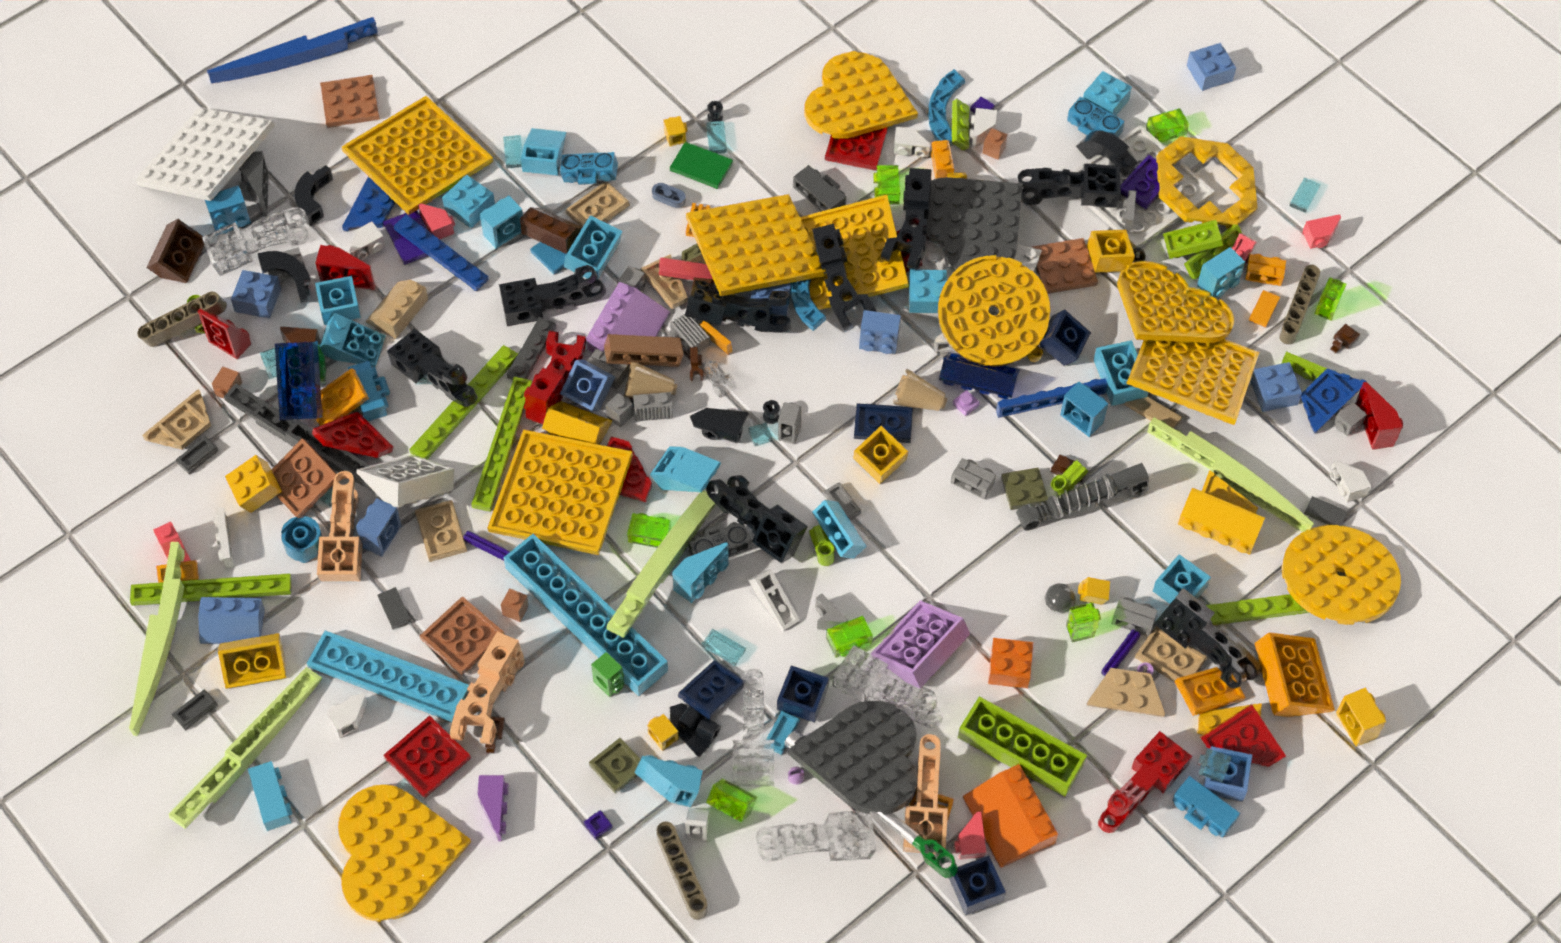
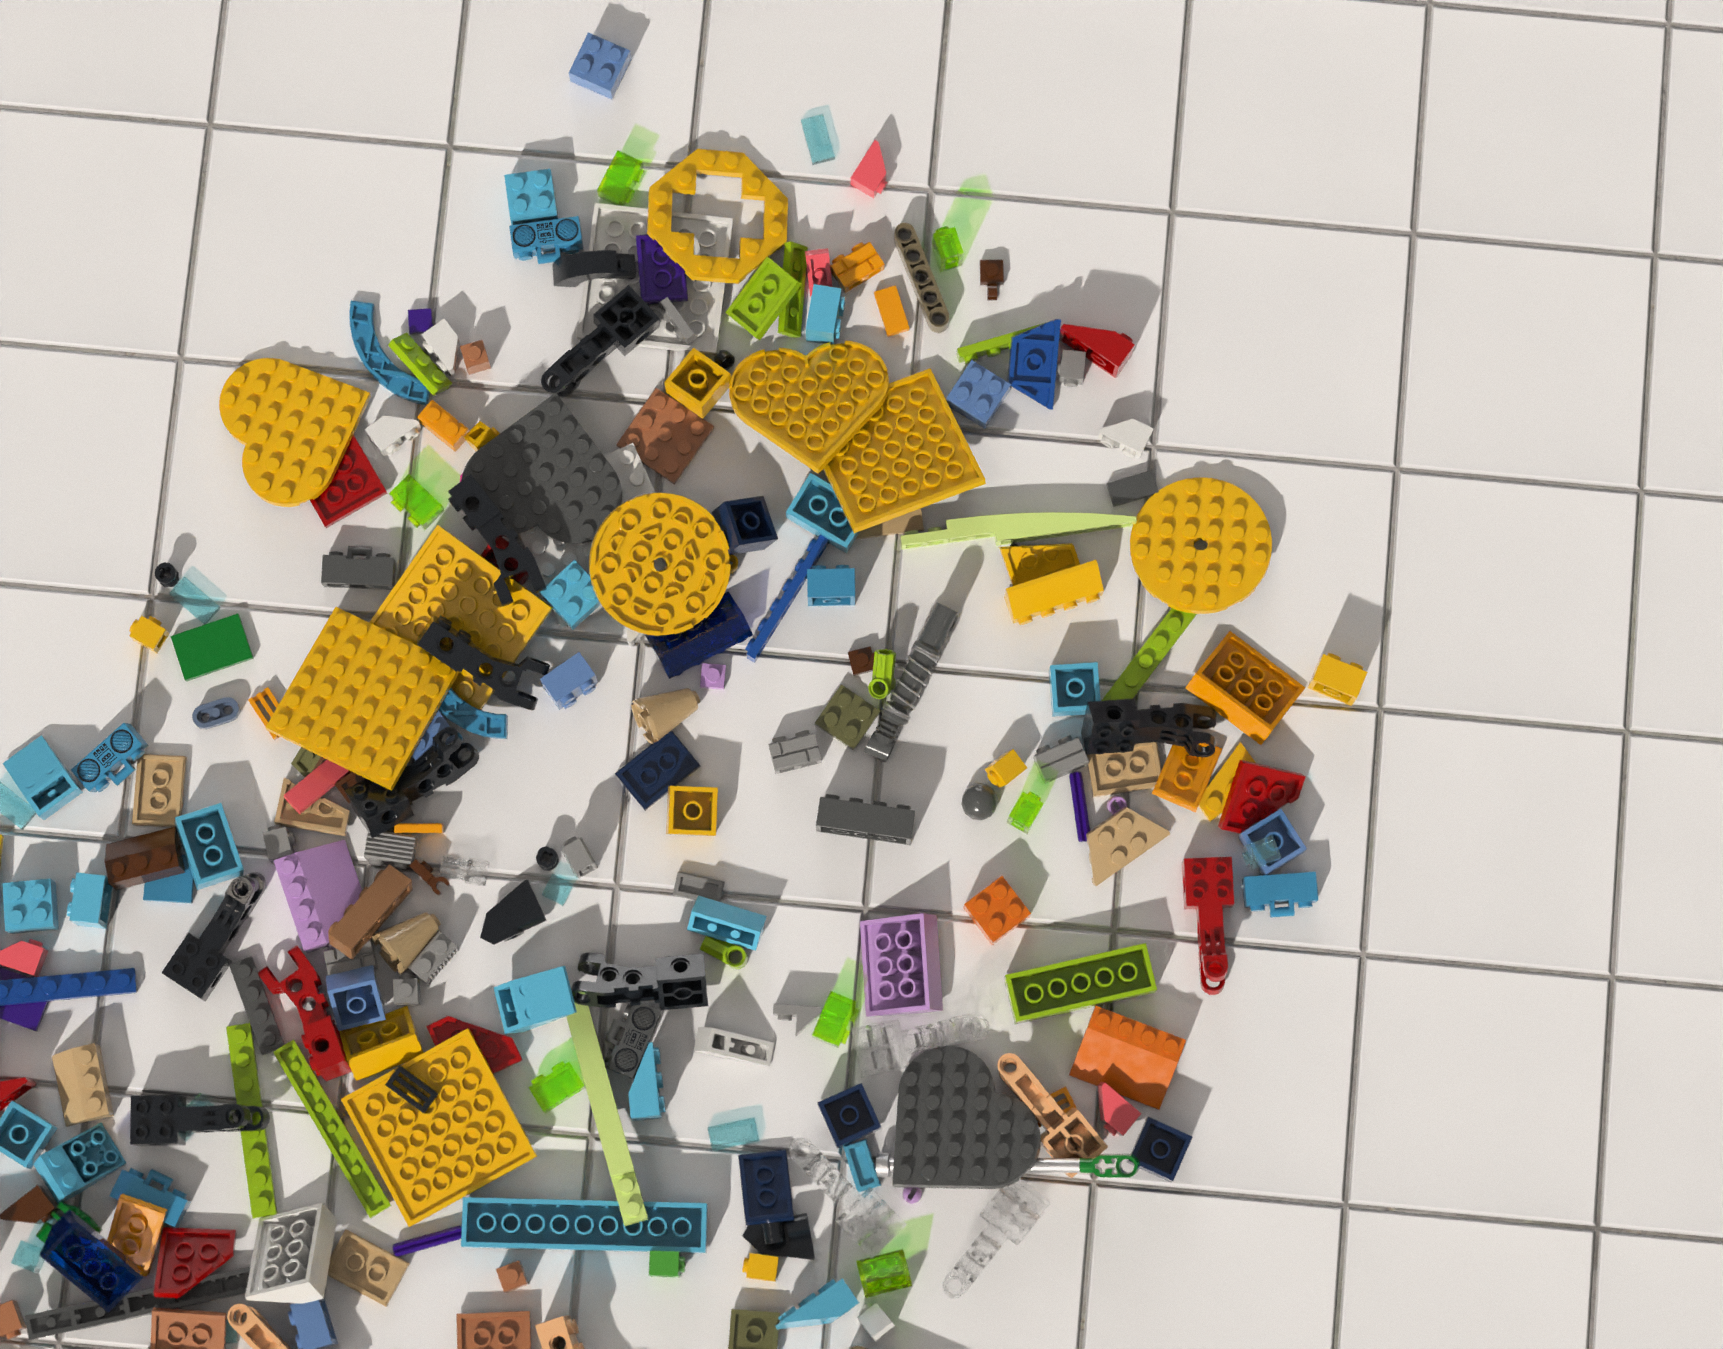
camera: 45 degrees left, 20 degrees up
(569, 469) = (423, 1108): none -> black tile
(979, 544) = (865, 820): none -> dark grey brick

